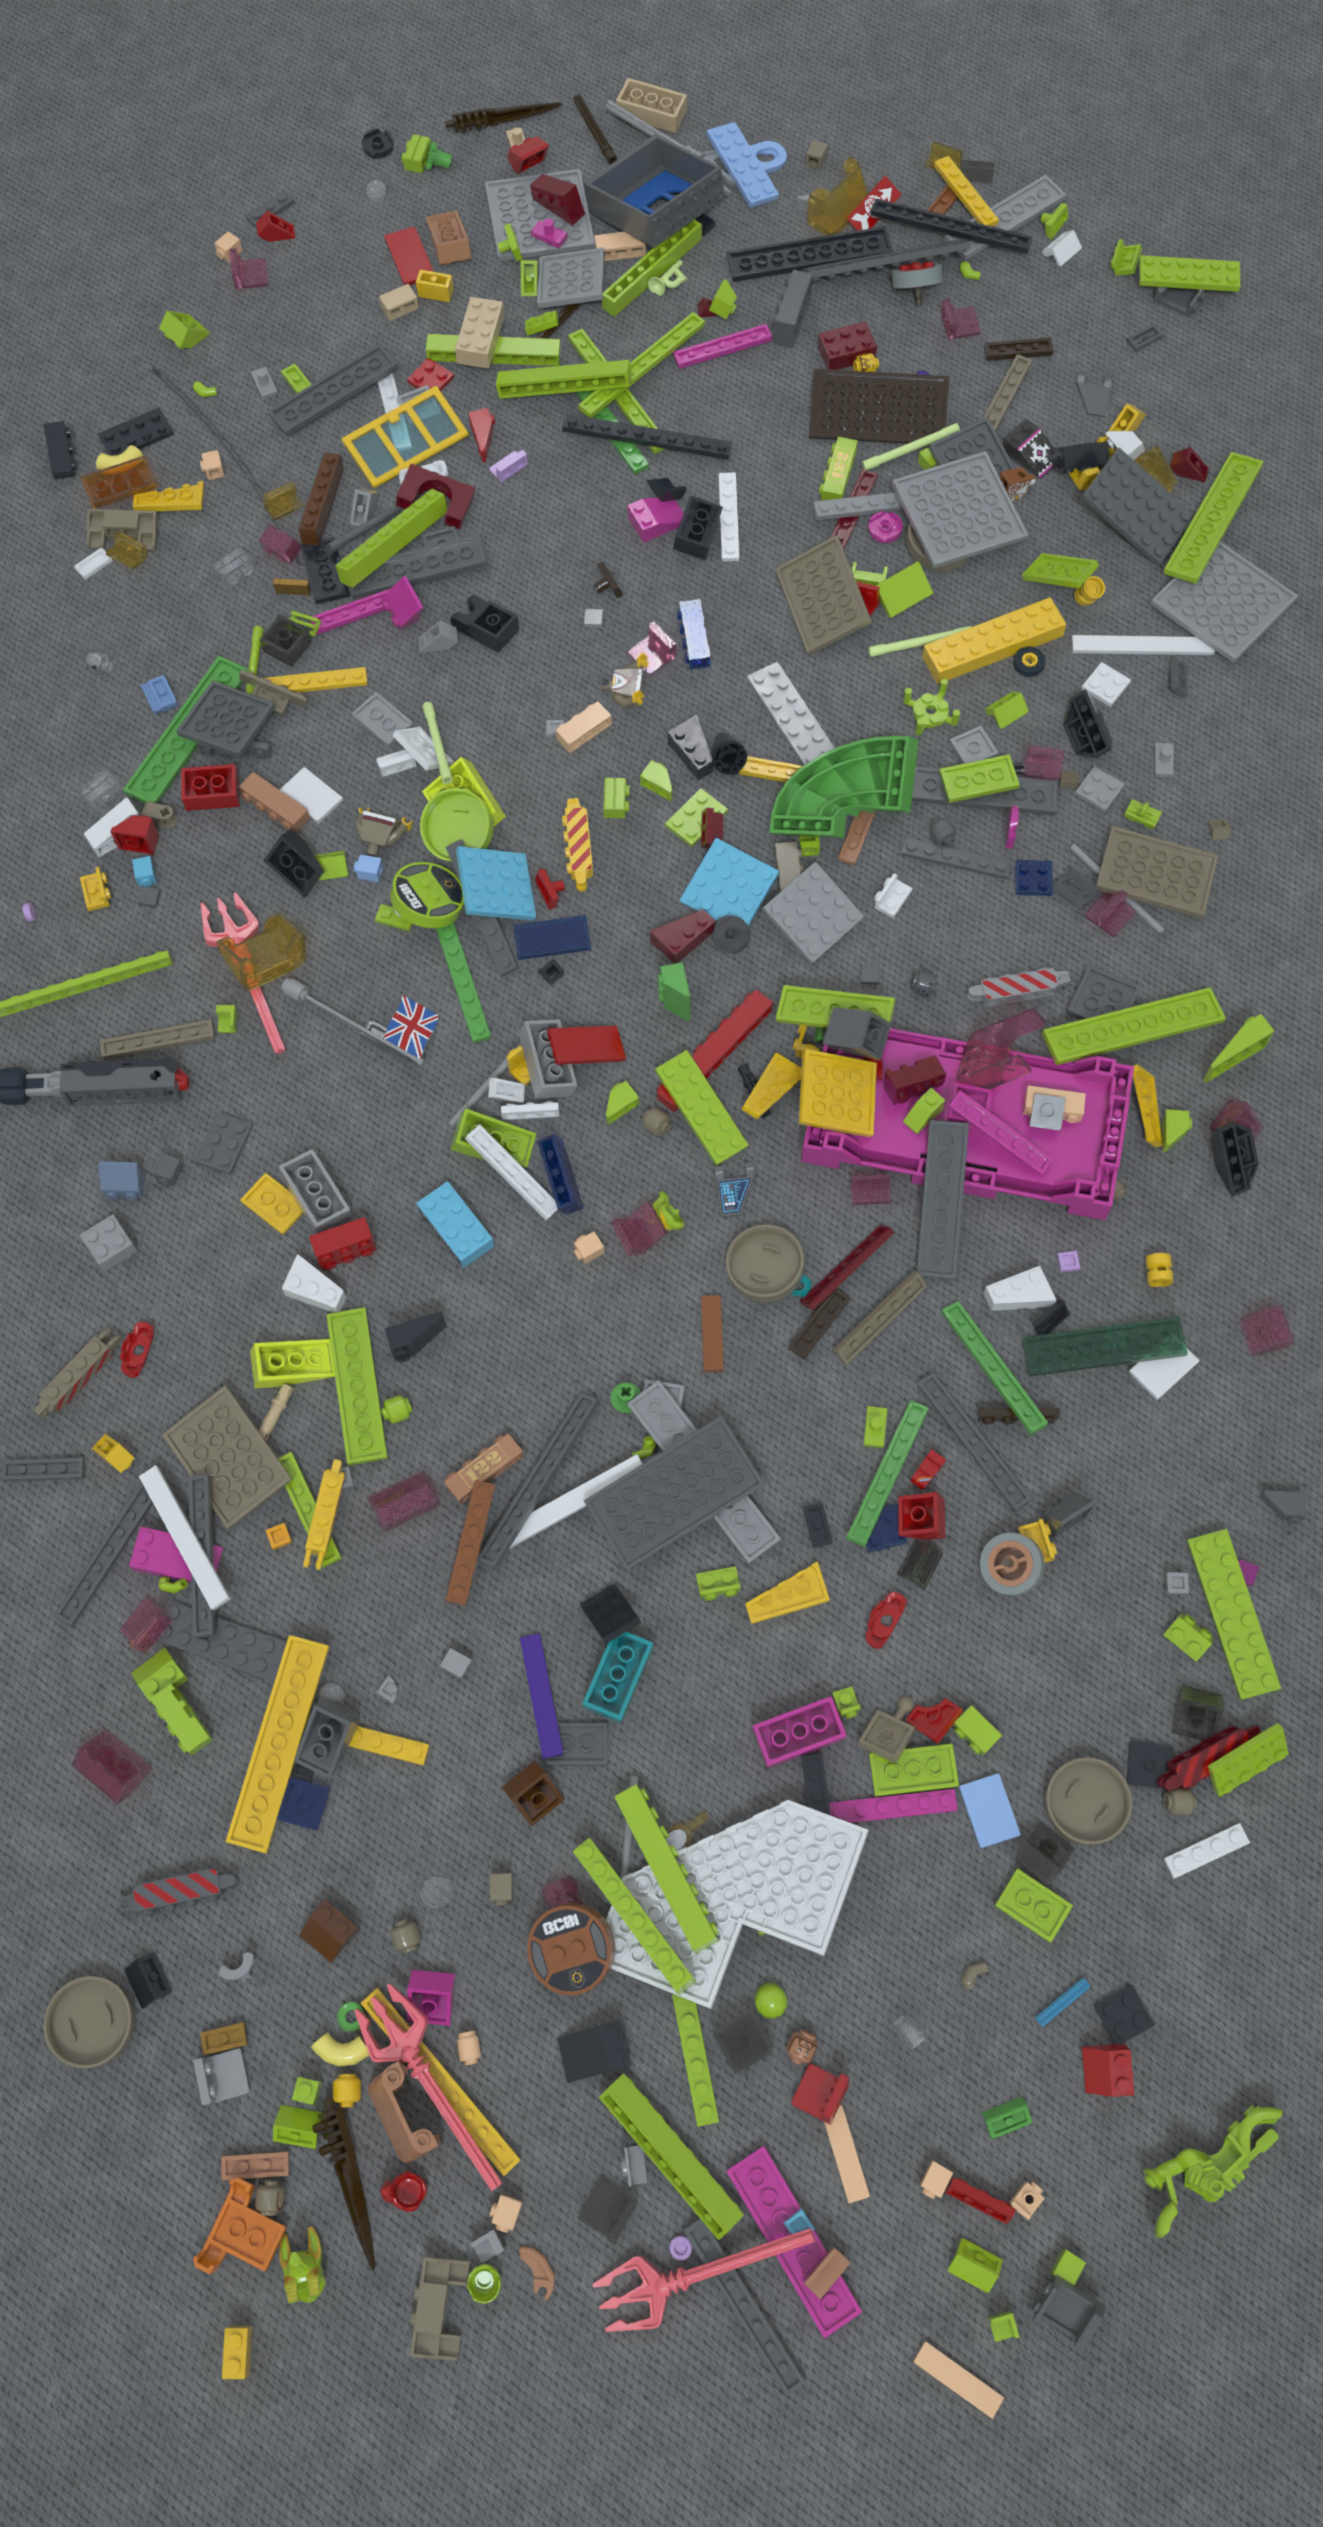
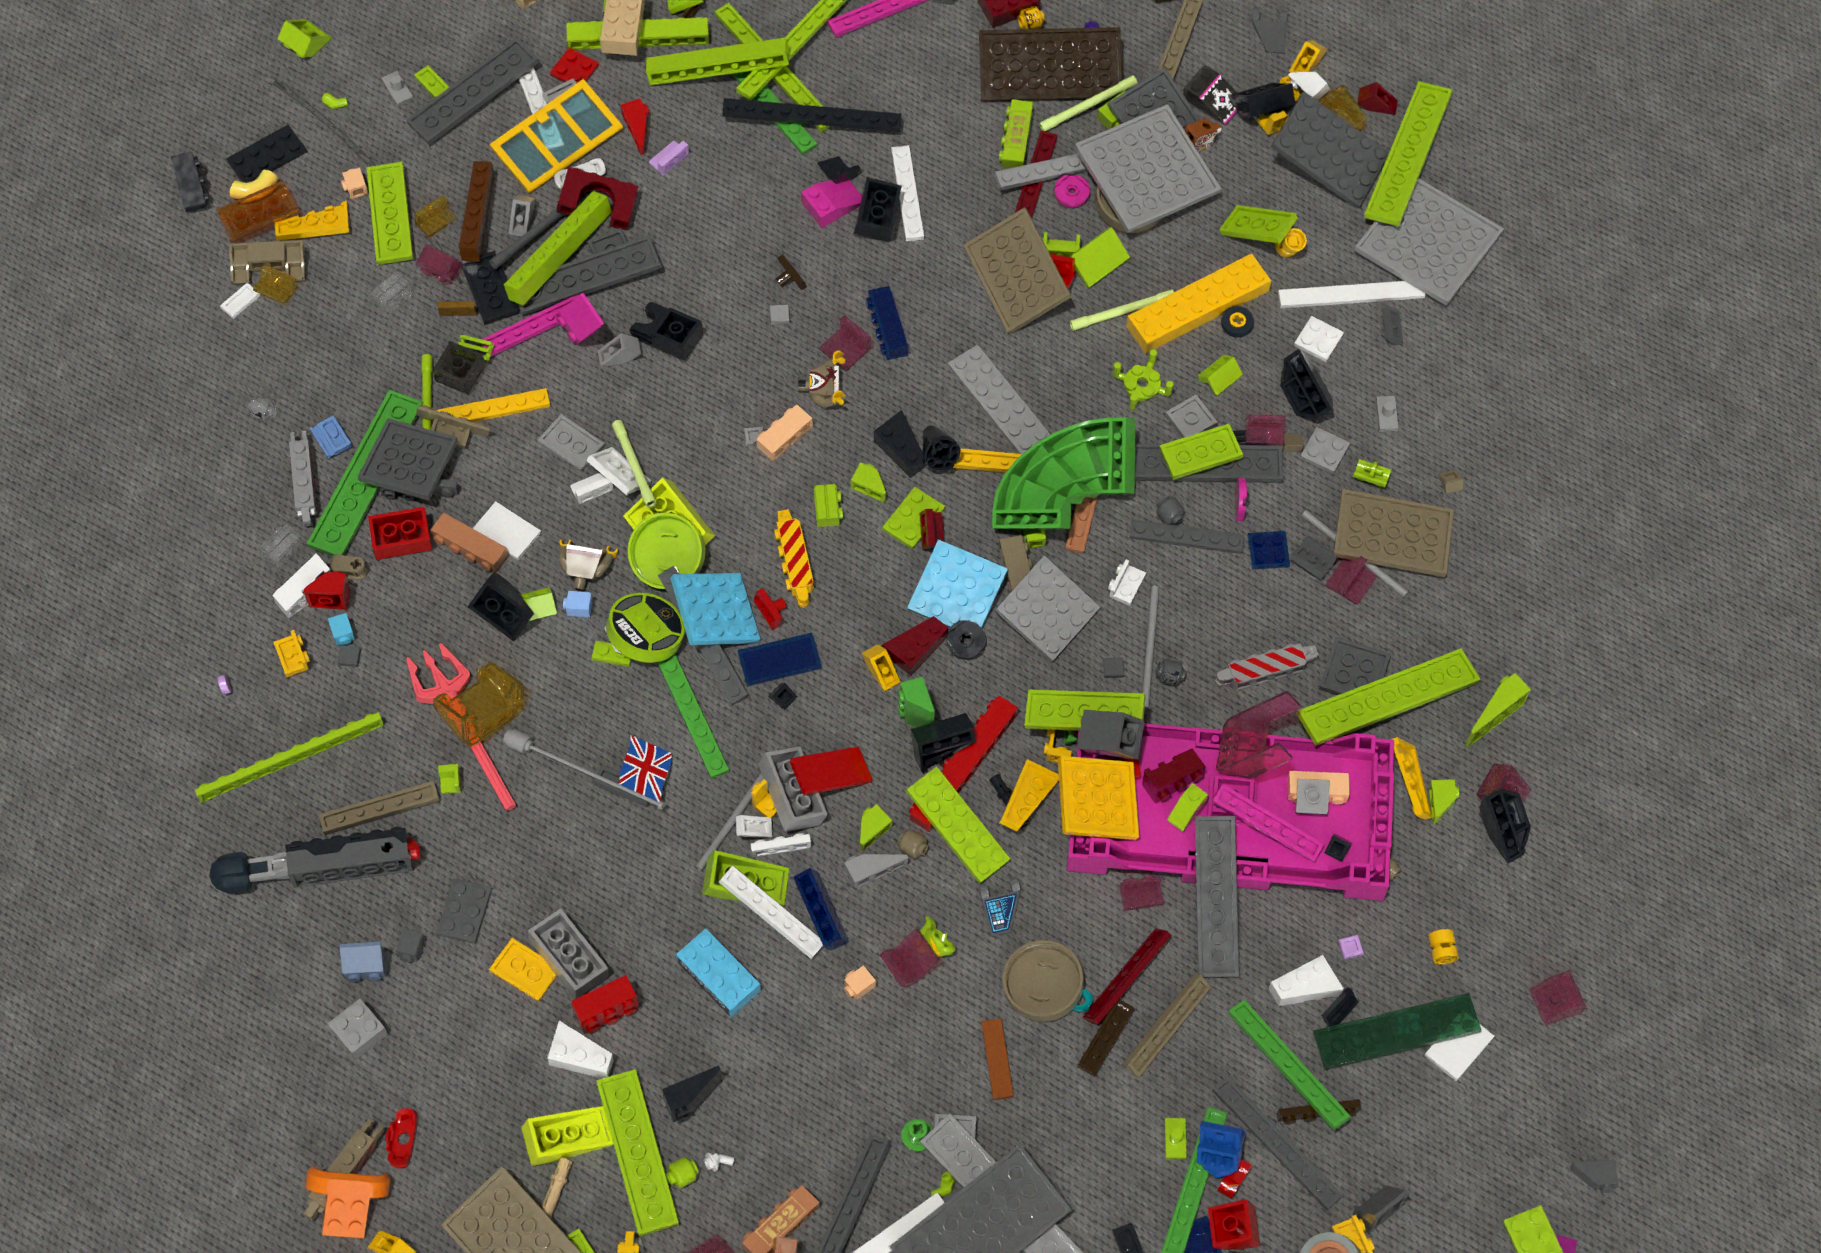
camera: 10 degrees left, 5 degrees down
(75, 1401) = (346, 1199): none -> orange piece
(127, 729) = (303, 478): none -> light grey hinge
(241, 495) = (390, 213): none -> lime plate
(427, 1401) = (712, 1160): none -> white plate
(614, 1139) = (869, 867): none -> light grey slope
(647, 952) = (881, 667): none -> yellow slope
(695, 1024) = (941, 738): none -> black wedge
(908, 957) = (1150, 644): none -> light grey piece
(916, 1440) = (1220, 1148): none -> blue piece
(1066, 1164) = (1337, 847): none -> black slope

